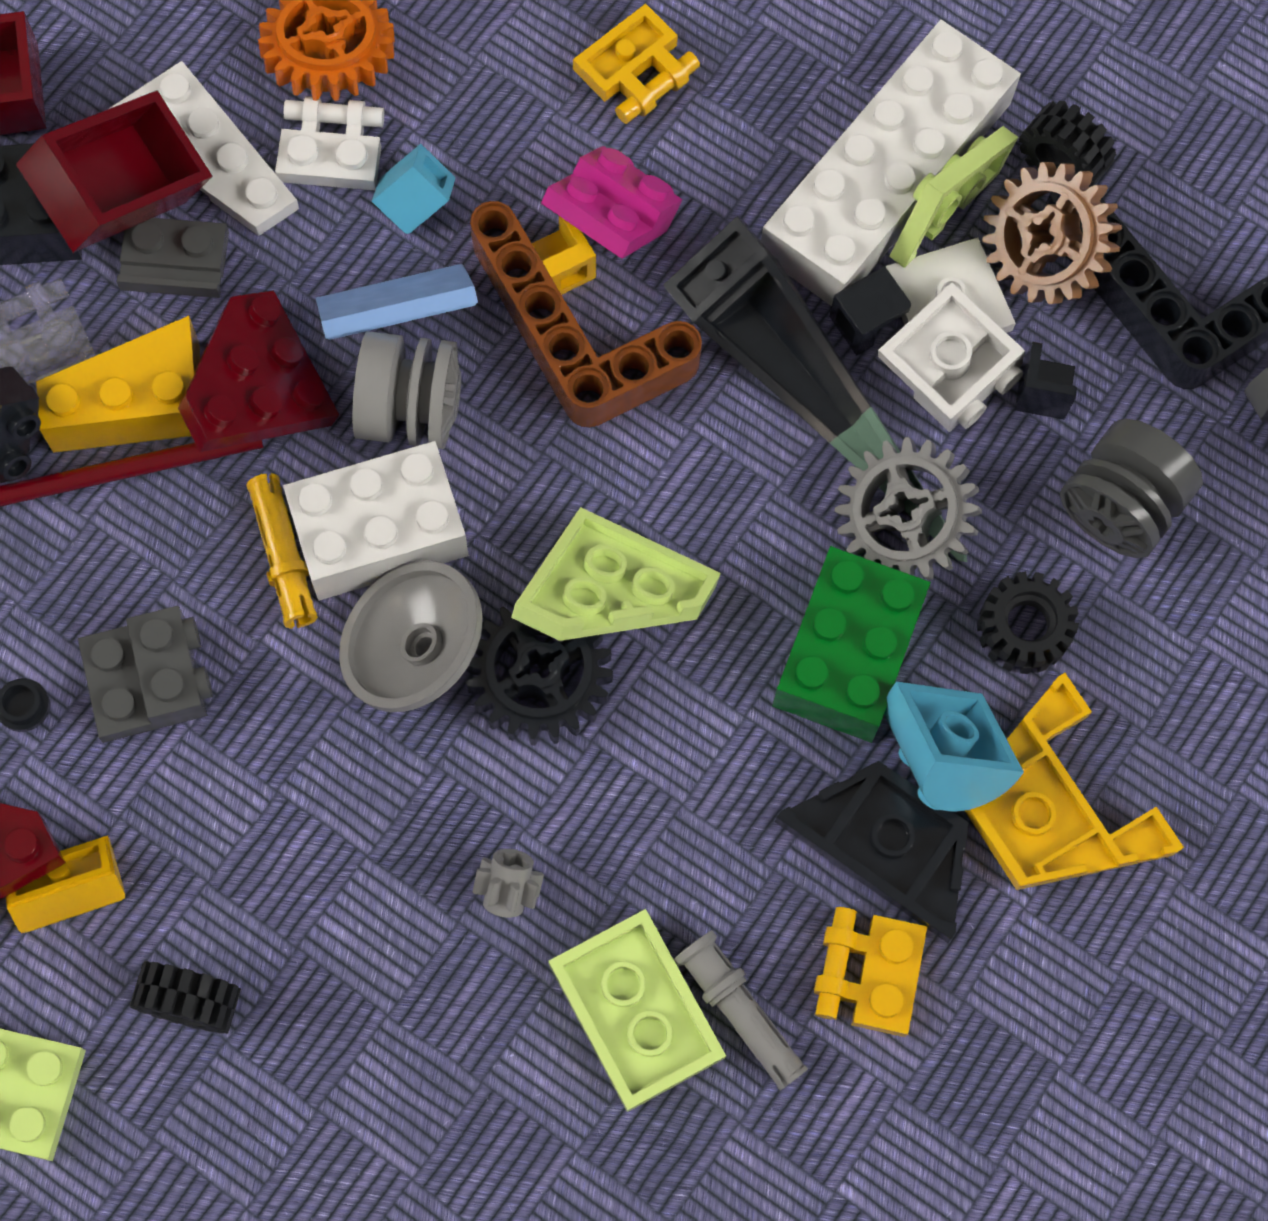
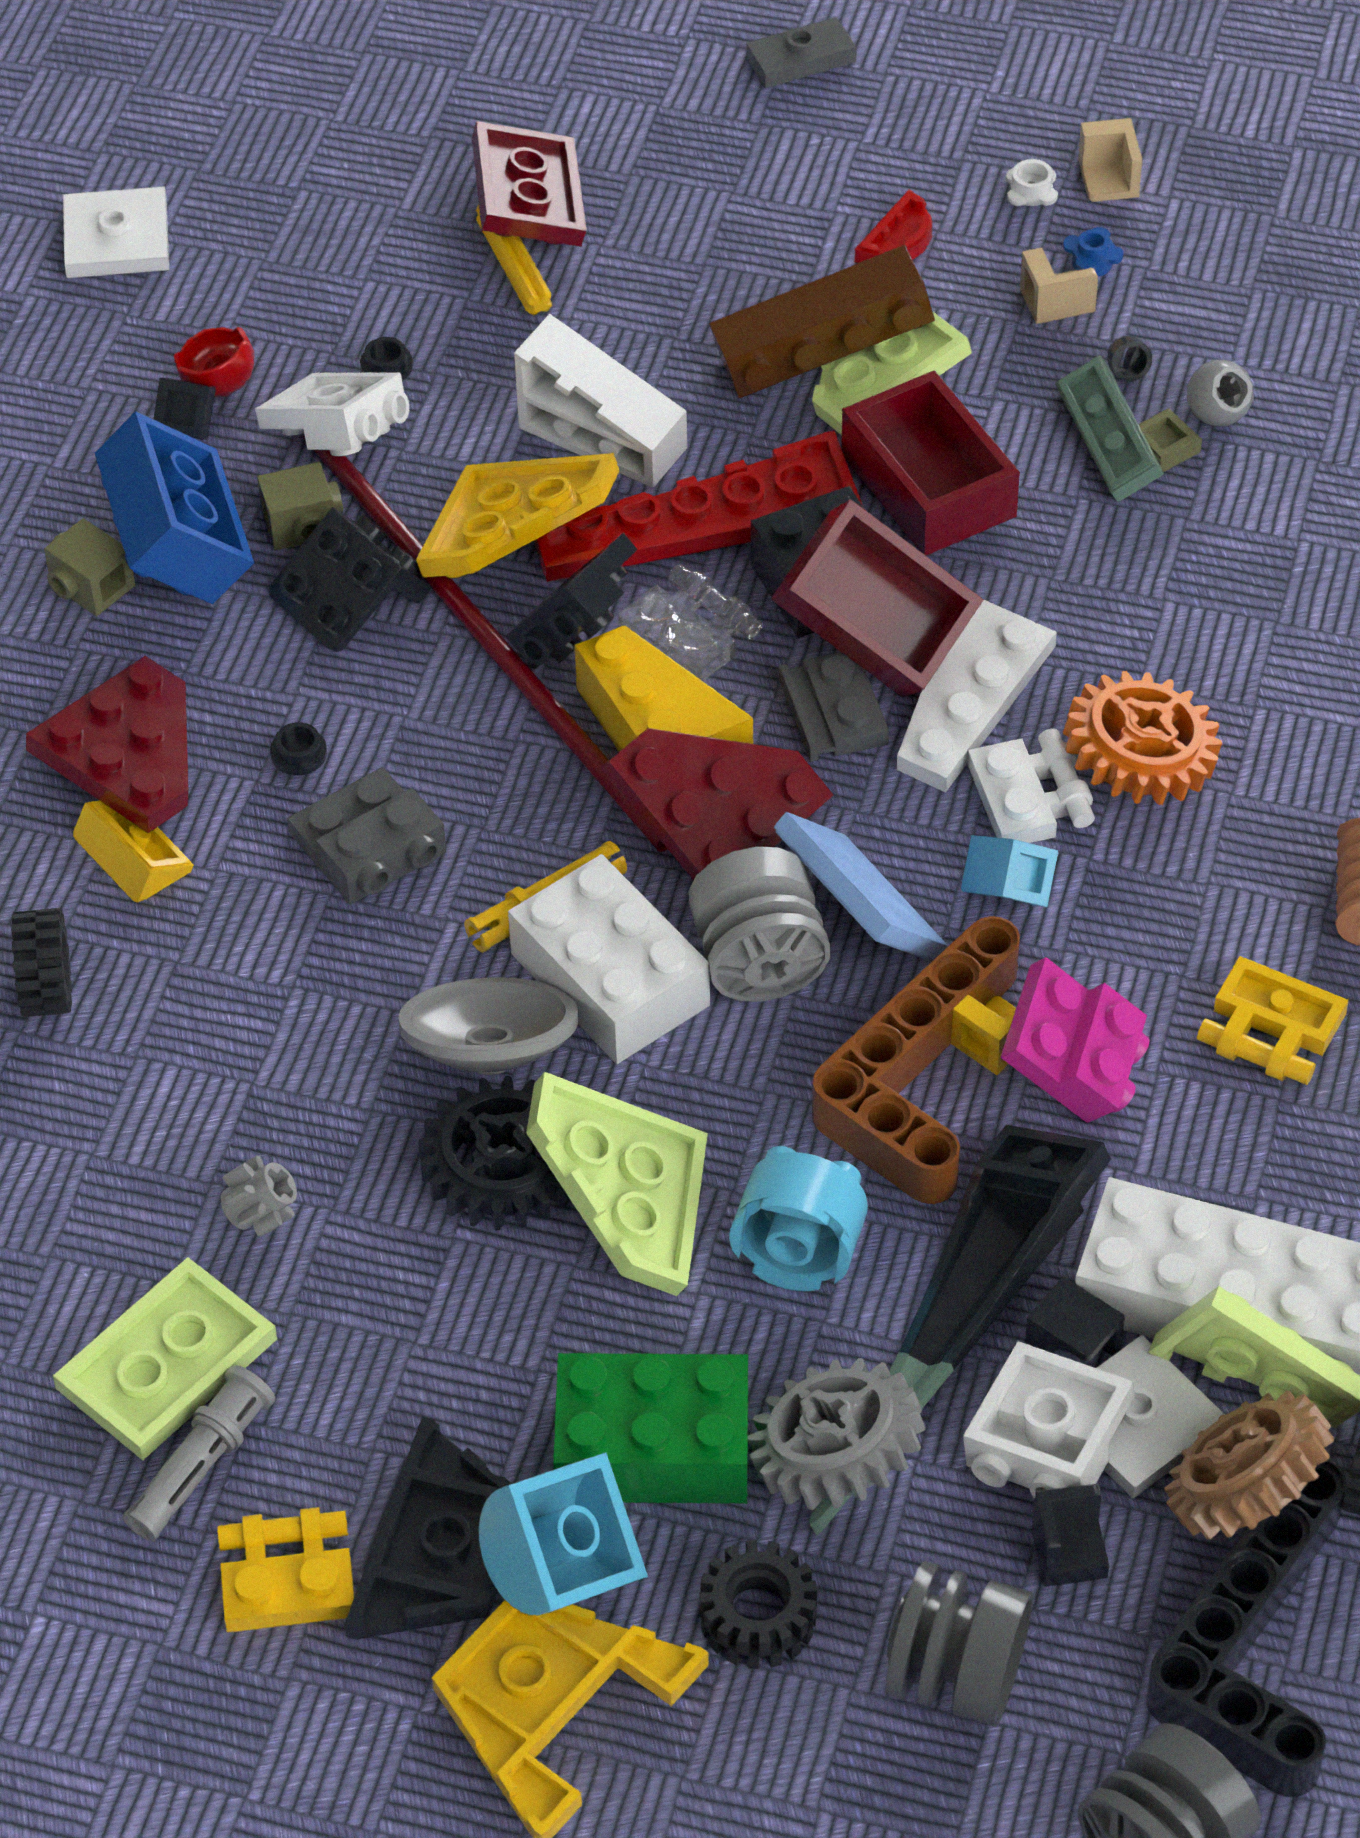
camera: 75 degrees right, 20 degrees down
(706, 463) = (799, 1219): none -> medium azure brick

